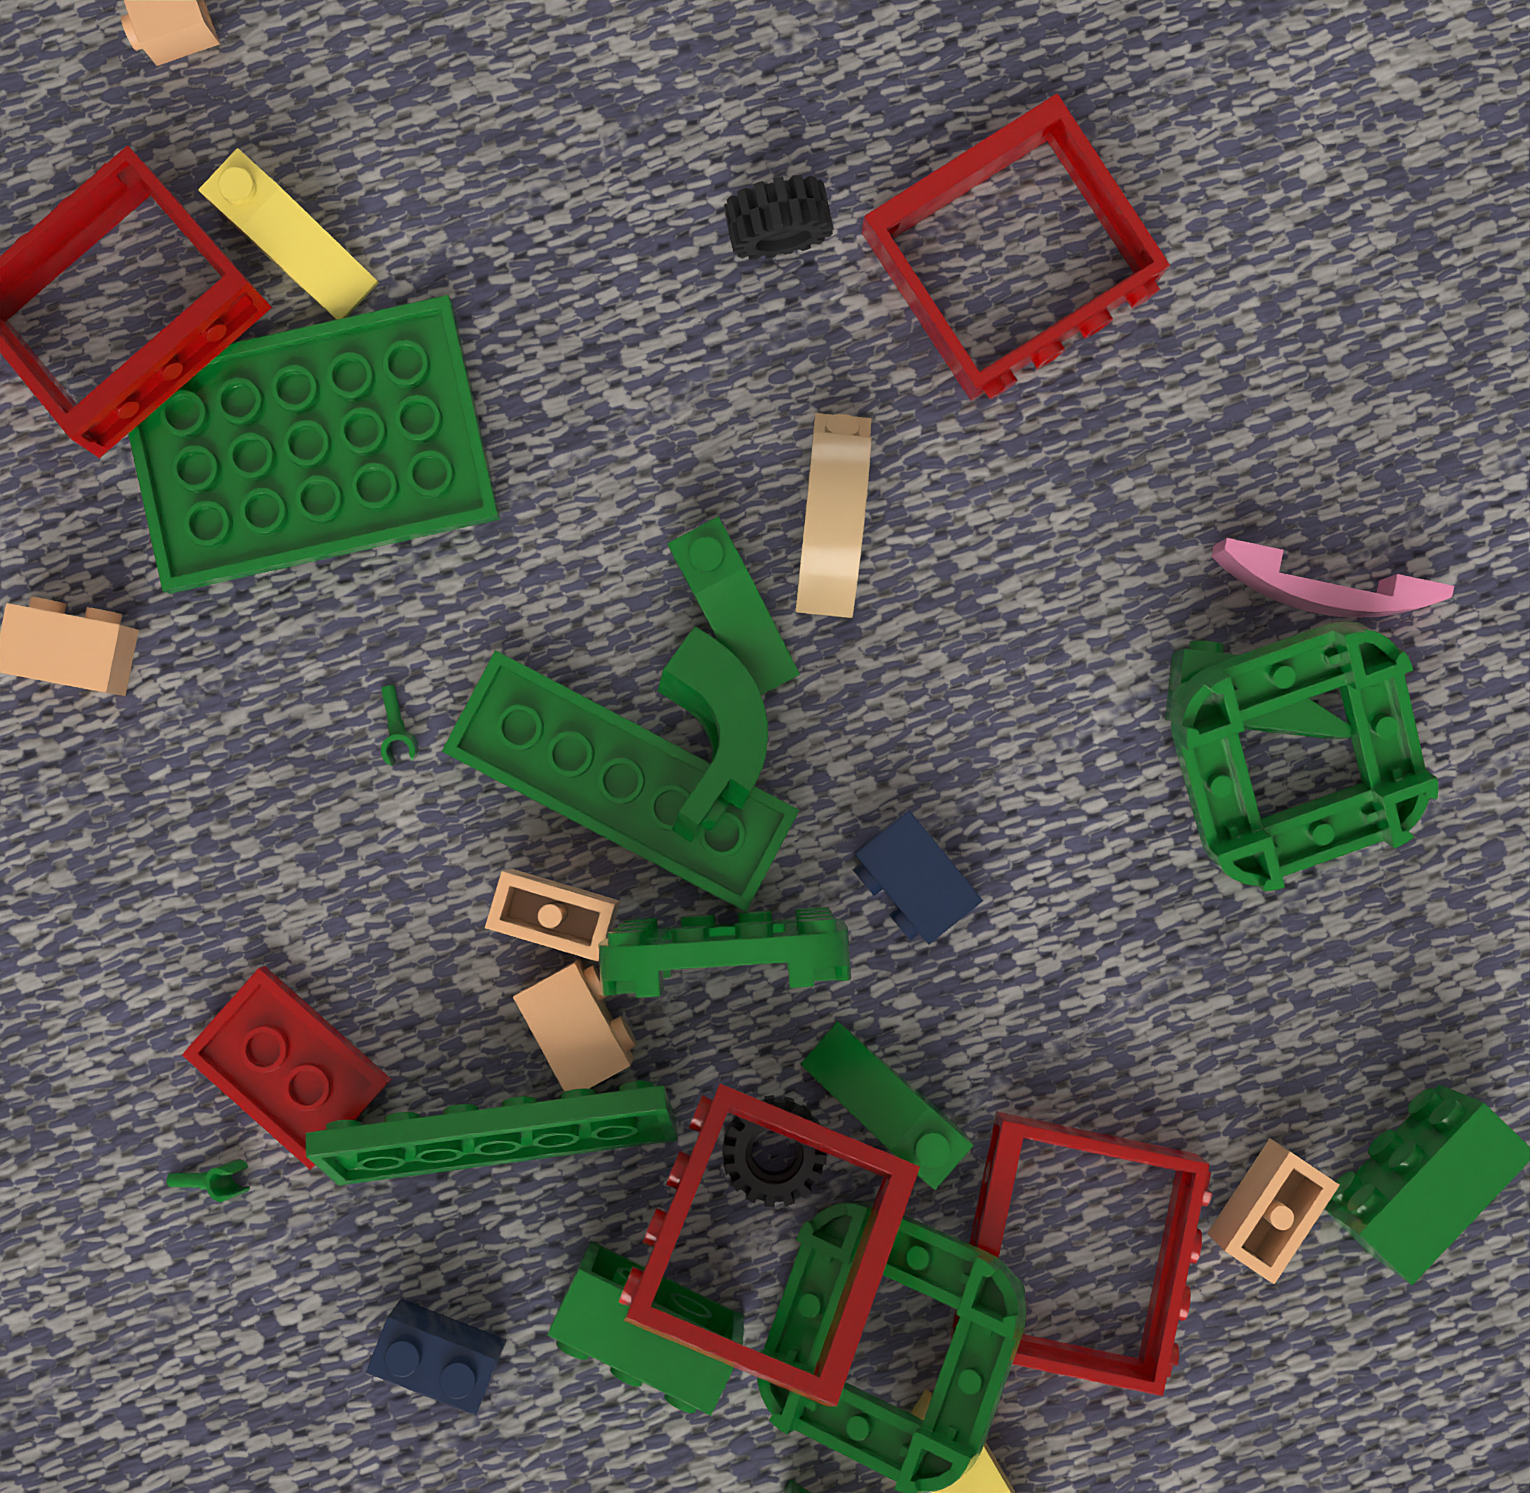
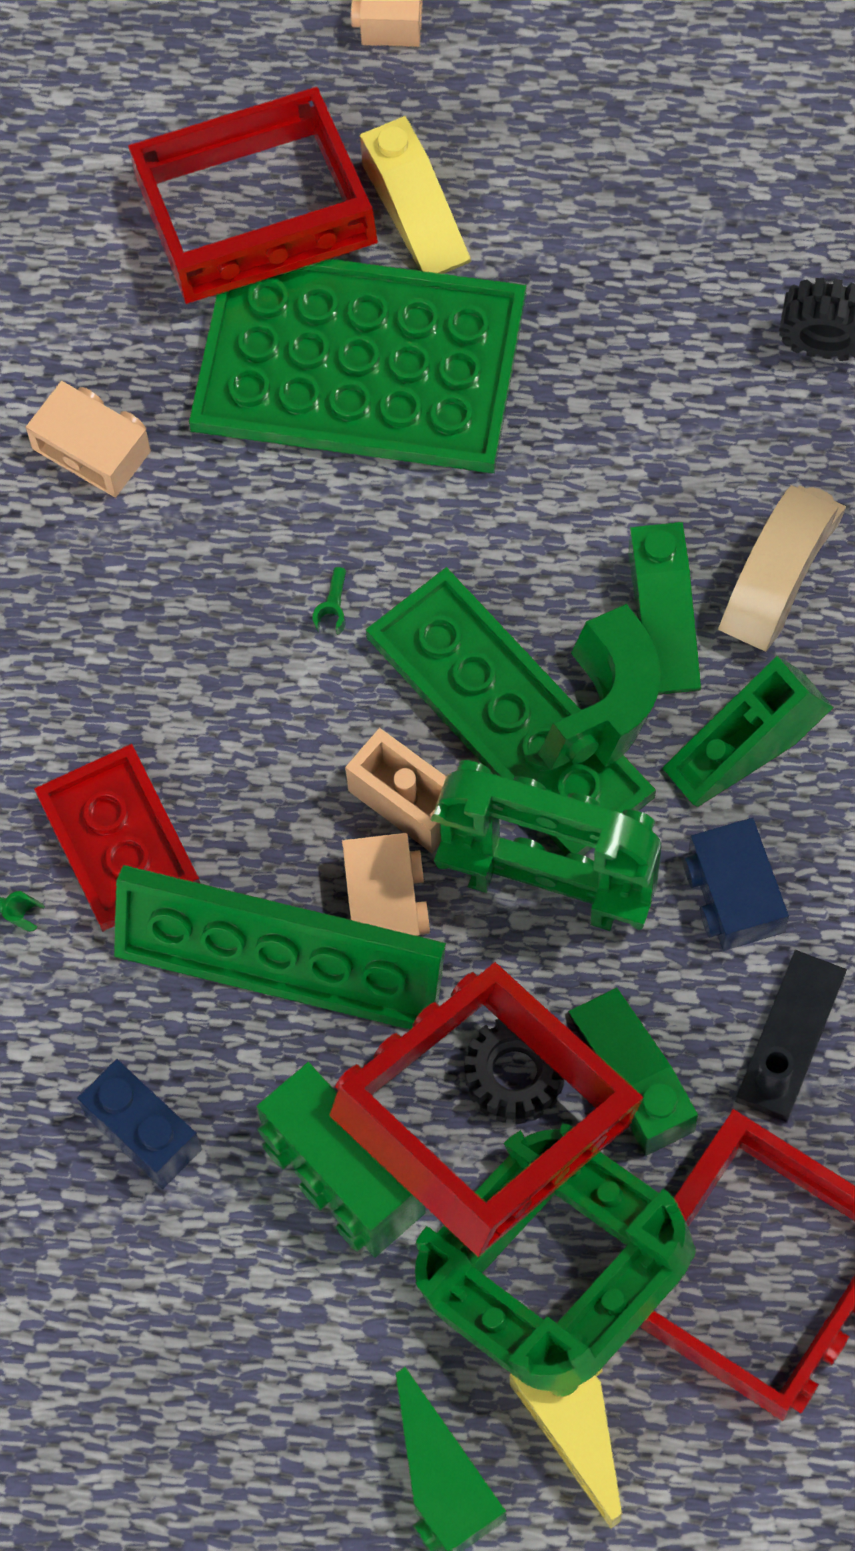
camera: 25 degrees right, 20 degrees down
(867, 711) = (748, 732): none -> green slope
(1022, 1004) = (791, 1035): none -> black piece

